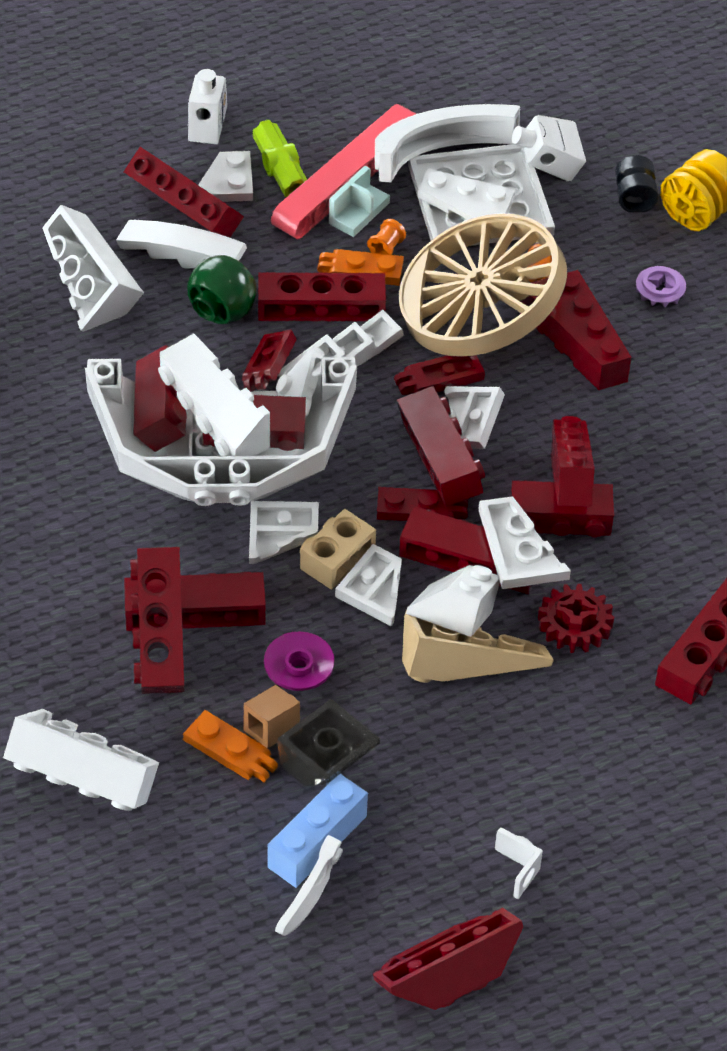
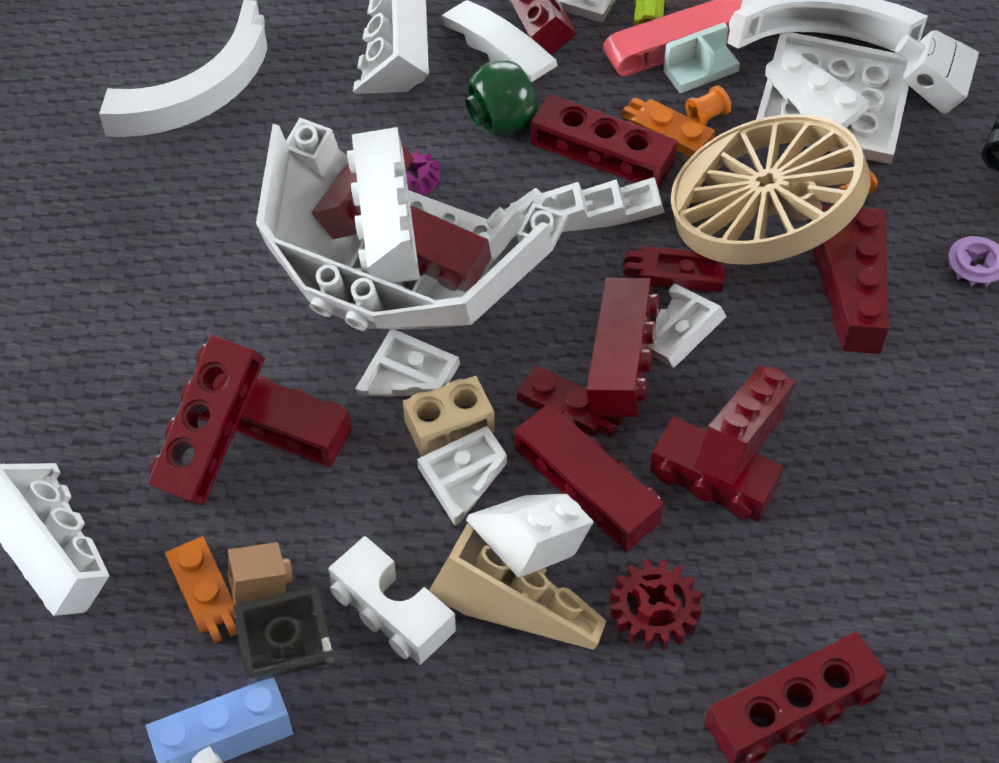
camera: 30 degrees right, 5 degrees up
(268, 359) = (505, 187): dark red hinge -> none
(302, 650) = (328, 509): magenta dish -> none
(407, 705) = (413, 625): none -> white arch
(516, 547) = (627, 496): white wing -> none

